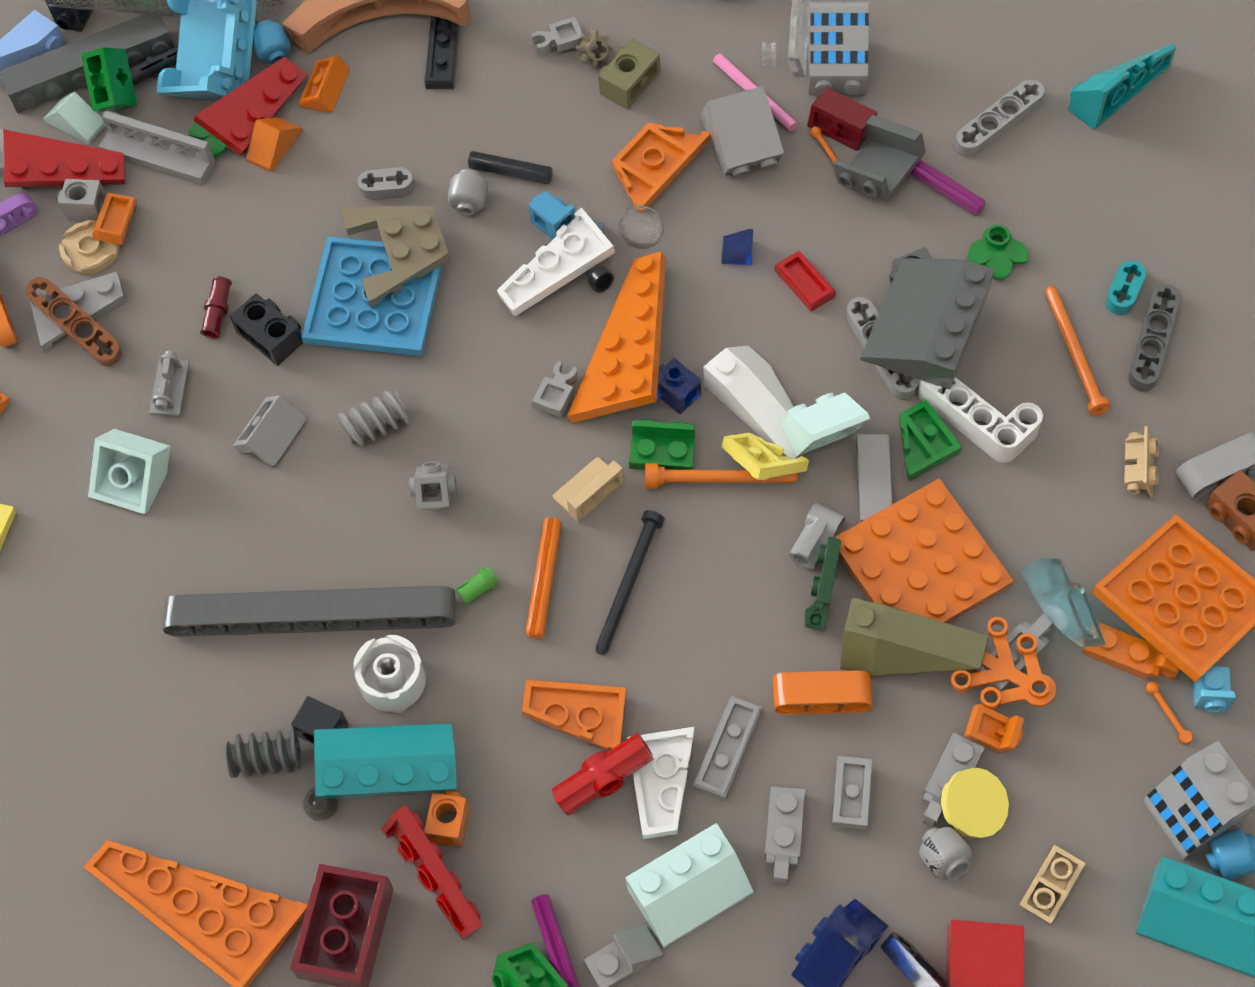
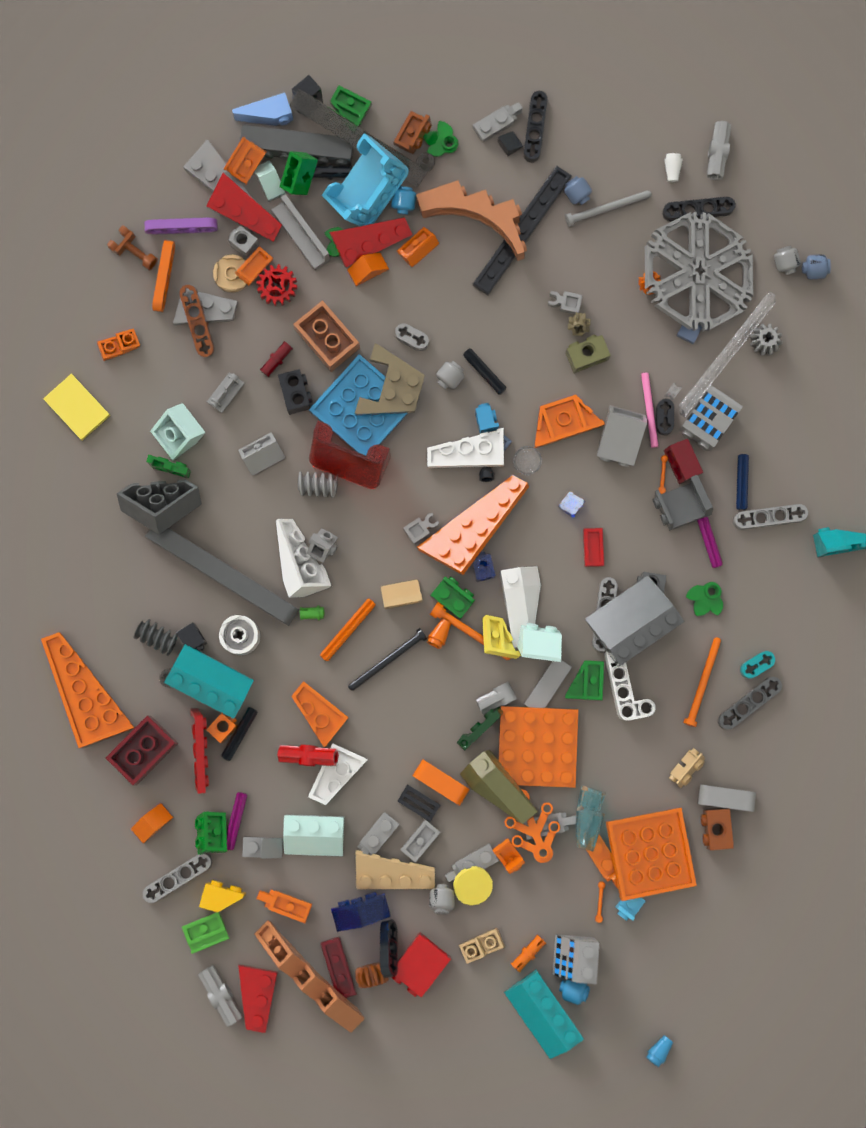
camera: 25 degrees right, 20 degrees up
(26, 105) = (244, 160): none -> orange plate
(141, 519) = (165, 465): none -> green wing
(156, 569) = (159, 503): none -> dark grey brick
(161, 222) = (272, 290): none -> red gear
(268, 238) = (326, 336): none -> nougat brick
(406, 358) = (348, 464): none -> clear red windscreen
(416, 538) = (299, 570): none -> white wedge
(478, 815) = (239, 733): none -> black axle
(677, 504) = (439, 634): none -> orange cone
(727, 748) = (378, 778): light grey tile -> none
(784, 85) = (669, 417): none -> black beam
(810, 731) = (432, 811): none -> black tile
(836, 870) = (383, 873): none -> tan wing
(933, 100) = (742, 482): none -> dark blue axle
(1127, 849) = (528, 953): none -> orange pin

